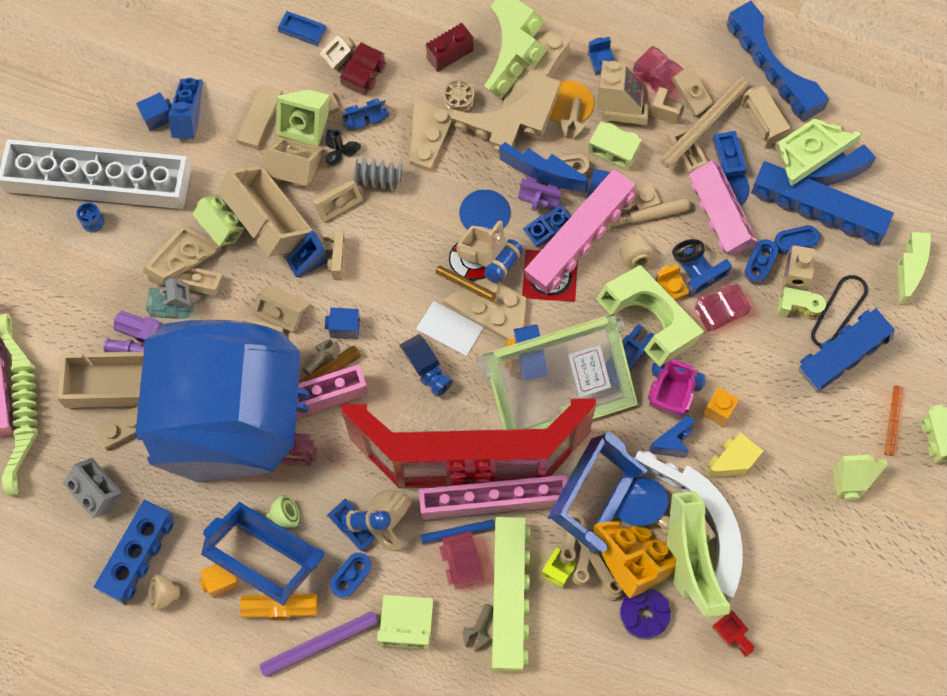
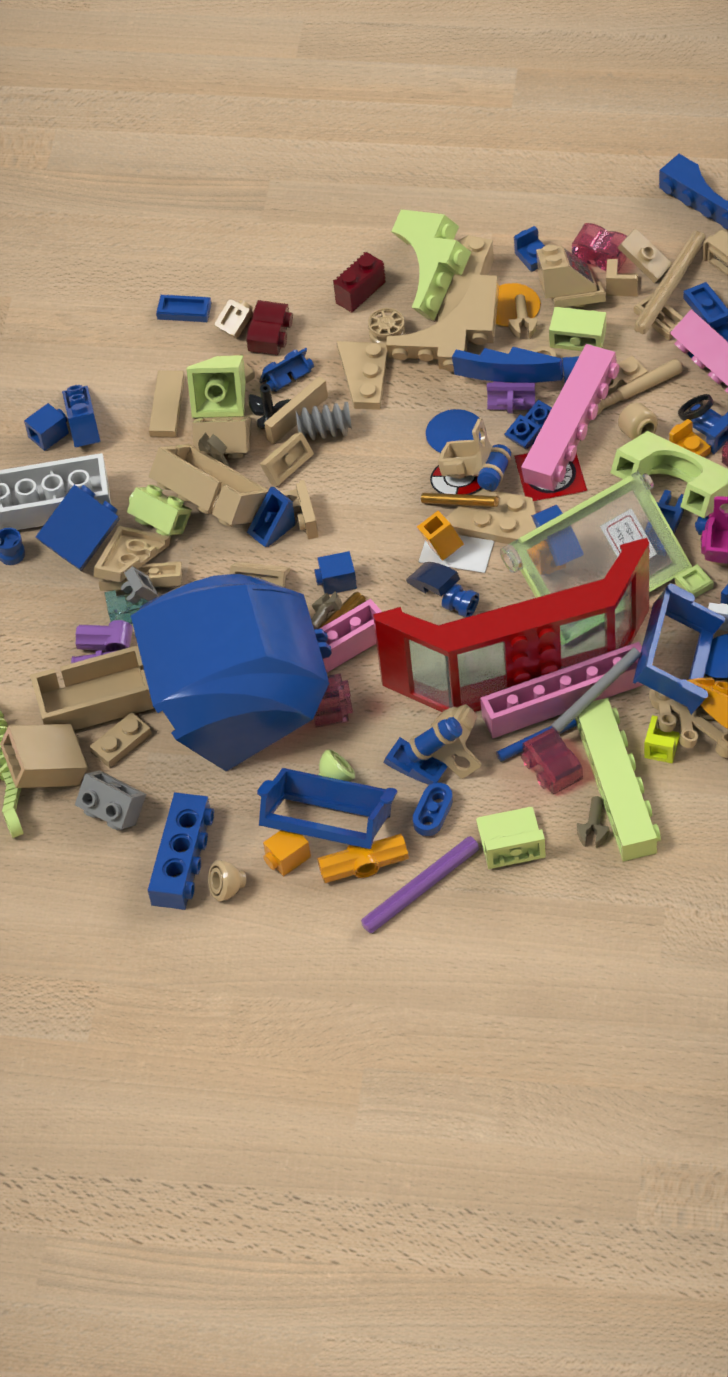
camera: 10 degrees left, 15 degrees down
(51, 431) = (43, 755): none -> tan brick
(145, 221) = (78, 526): none -> blue brick
(280, 179) = (214, 447): none -> dark tan bar
(367, 150) = (286, 419): none -> tan tile
(437, 315) = (440, 535): none -> light orange brick
(516, 511) = (601, 685): none -> light grey bar
(634, 419) = (694, 581): none -> yellowish green tile

